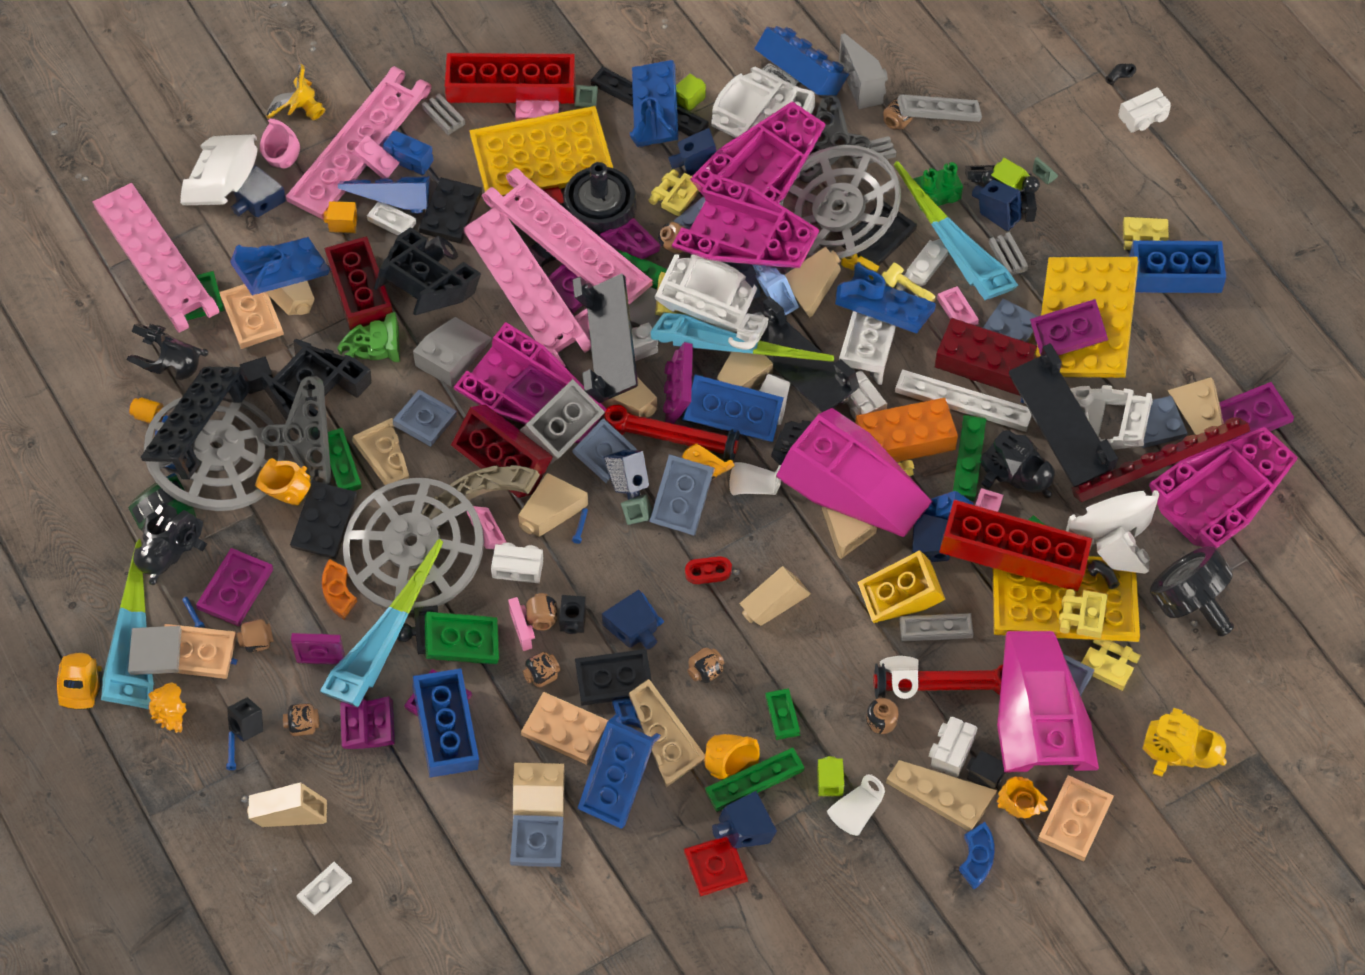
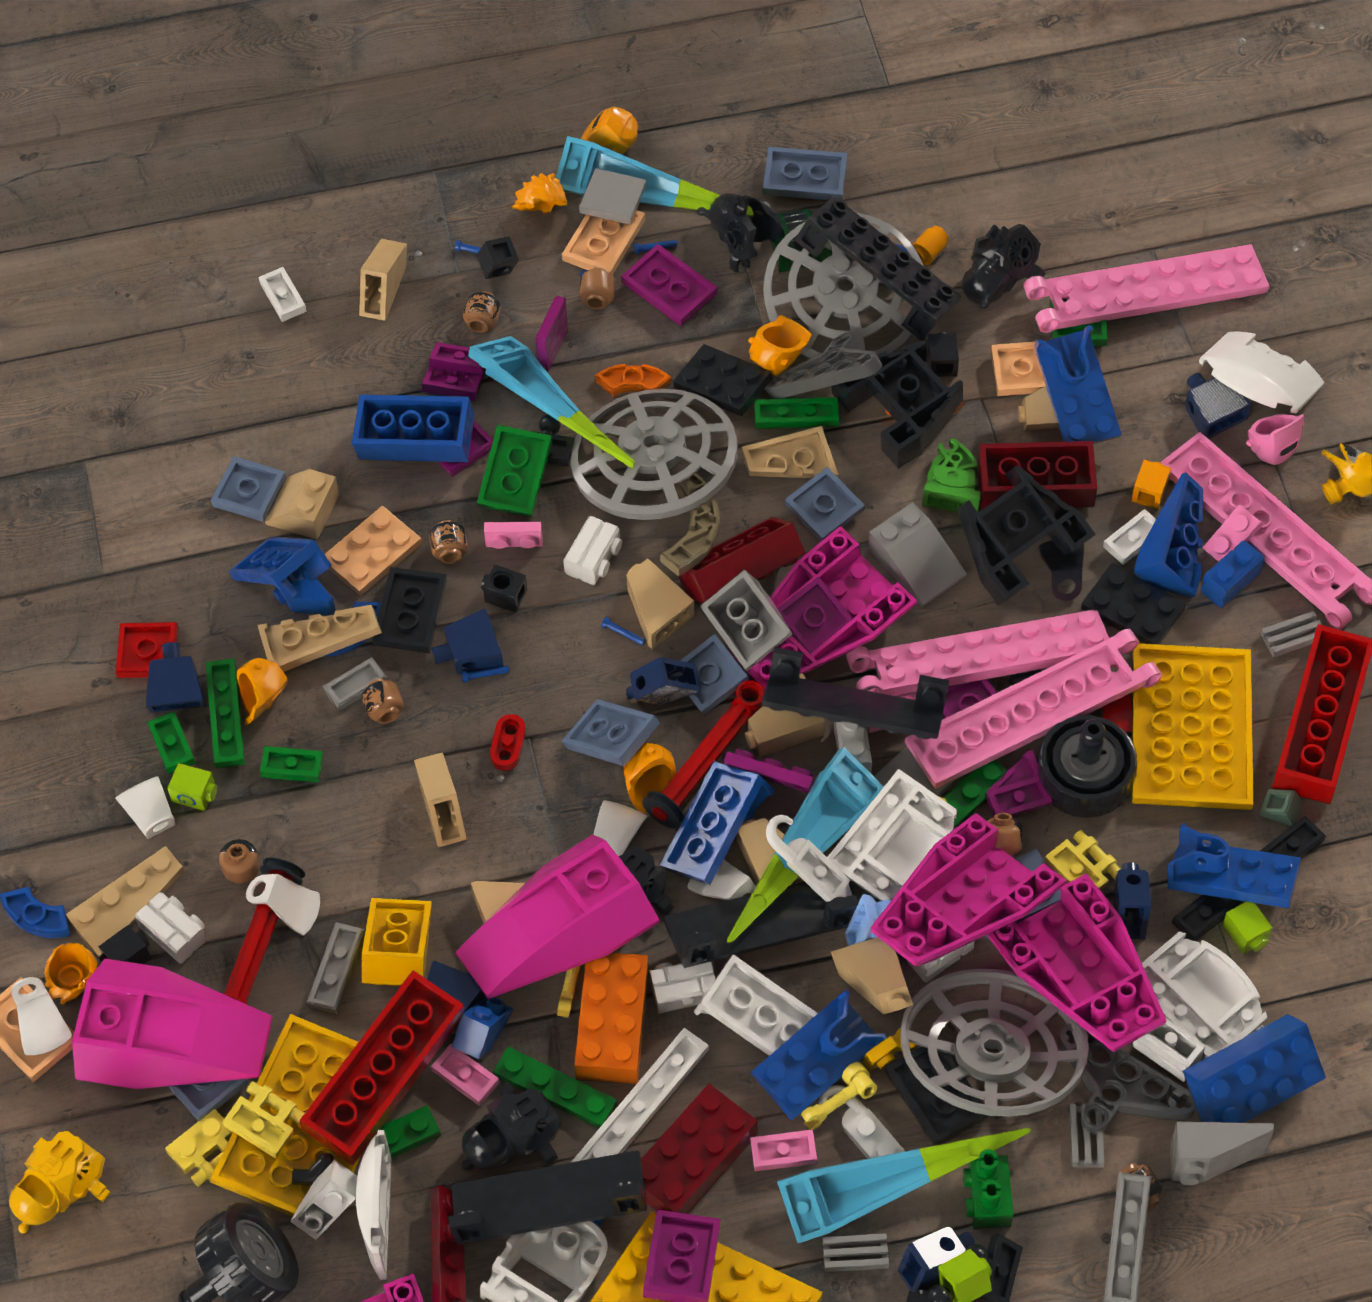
camera: 110 degrees right, 0 degrees up
(90, 519) = (805, 173): none -> sand blue plate
(491, 531) = (650, 533): bright pink plate -> none
(534, 109) = (1269, 741): bright pink plate -> none
(541, 612) = (518, 555): medium nougat head -> none
(637, 509) = (618, 689): sand green slope -> none
(692, 697) = (350, 685): none -> light grey tile
(796, 809) = (171, 742): none -> green plate
(1011, 321) = (742, 1211): sand blue plate -> none
(1070, 803) = (39, 1019): none -> white piece

